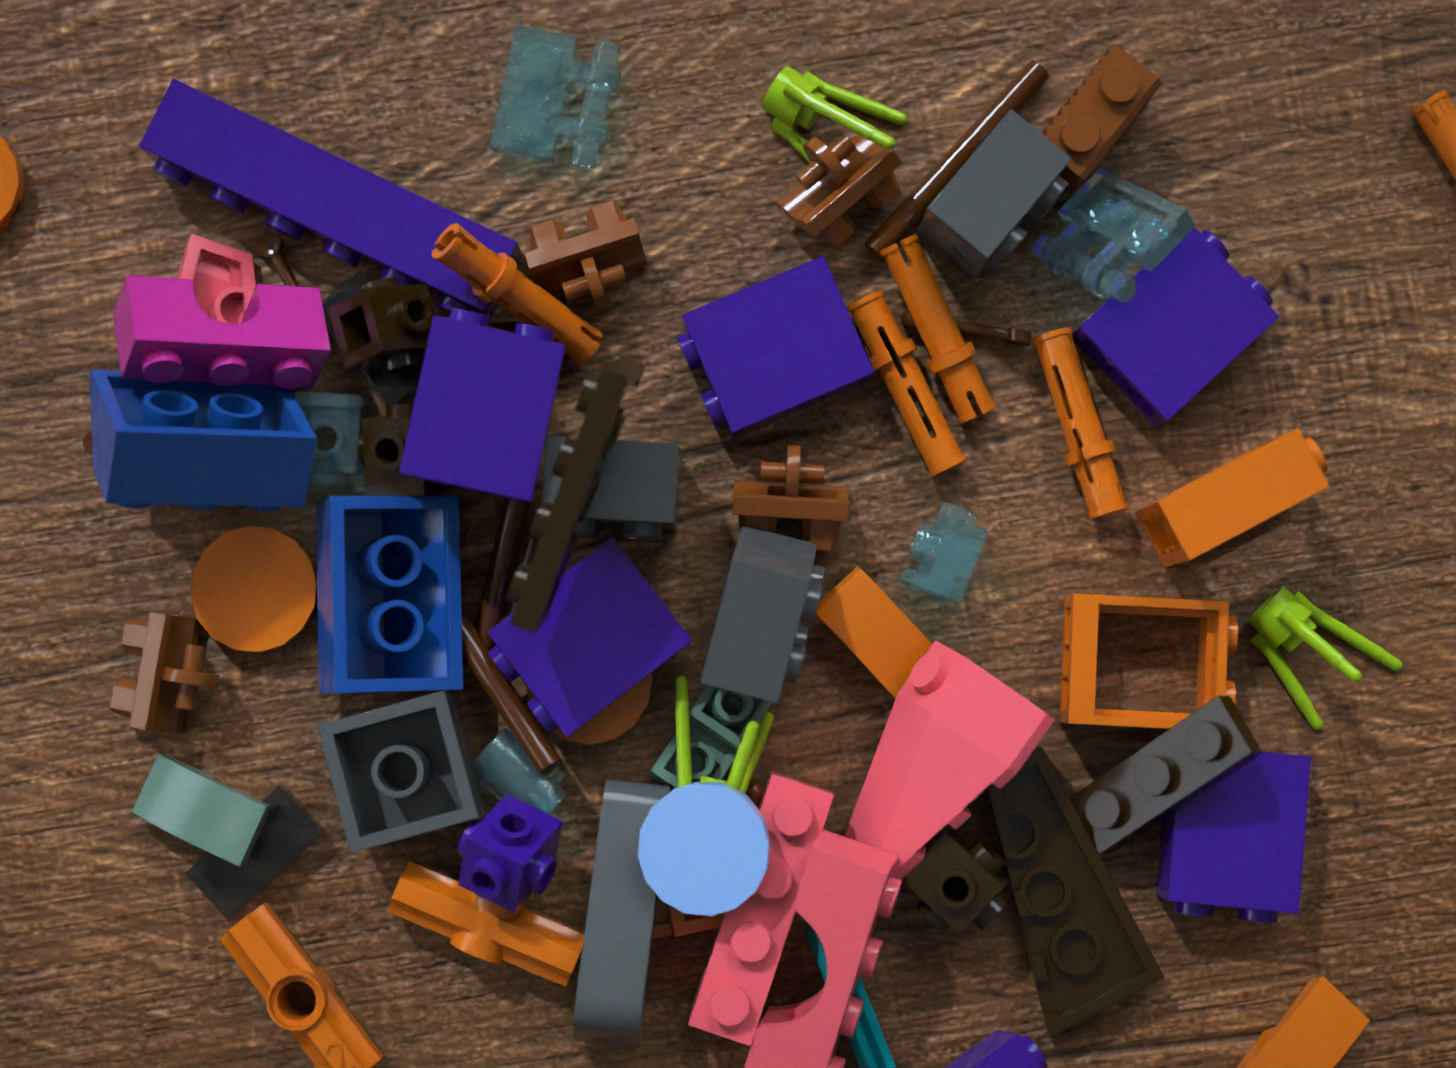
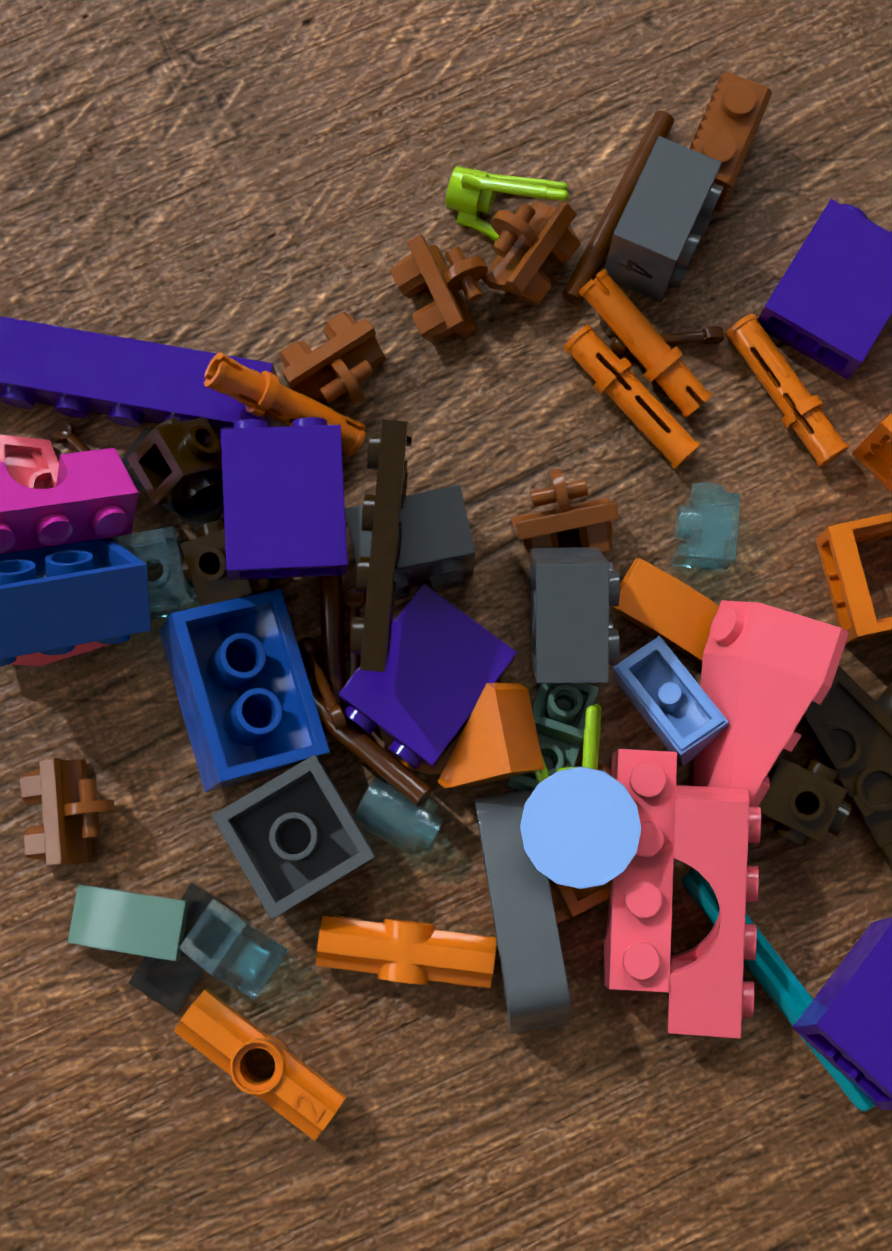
camera: 15 degrees left, 5 degrees down
(254, 589) = (125, 720): orange tile -> none
(304, 870) = (233, 949): none -> clear light blue brick
(472, 566) = (308, 650): none -> reddish brown hinge
(510, 853) = (410, 882): dark purple brick -> none
(536, 94) = (254, 245): clear light blue plate -> none
(645, 725) = (496, 740): none -> orange slope
(739, 202) = (428, 269): none -> dark orange hips
(774, 348) = (514, 396): dark purple brick -> none
(847, 733) = (670, 700): none -> medium blue slope
(1122, 219) = (772, 213): clear light blue plate -> none

